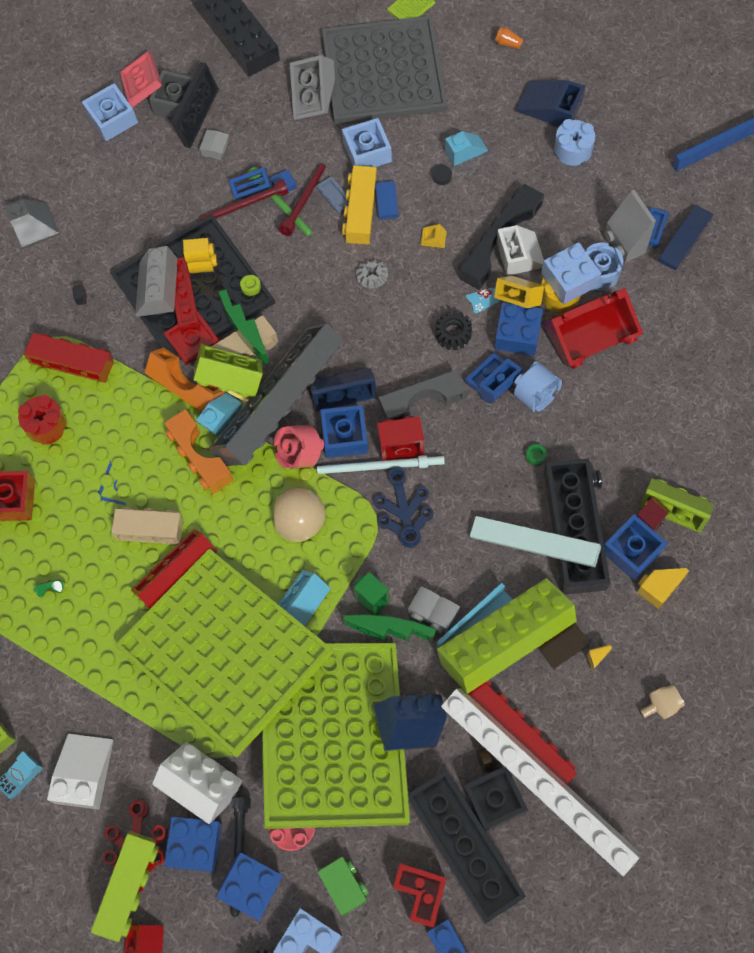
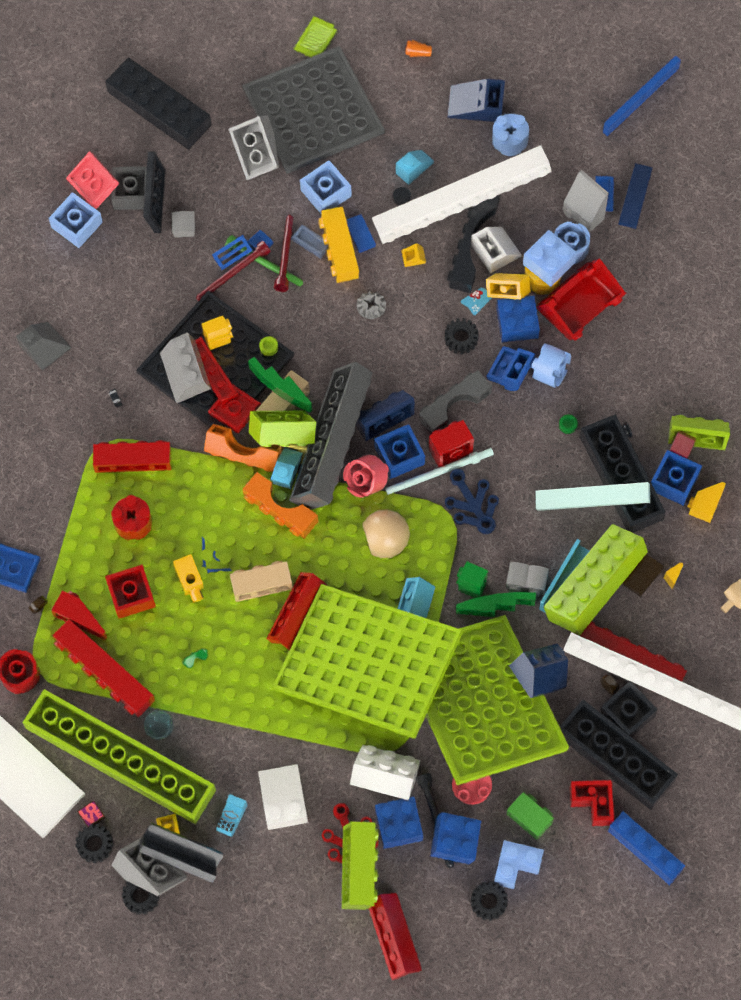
camera: 20 degrees left, 0 degrees up
(73, 491) = (187, 570): none -> yellow torso
(502, 186) = (461, 194): none -> white brick

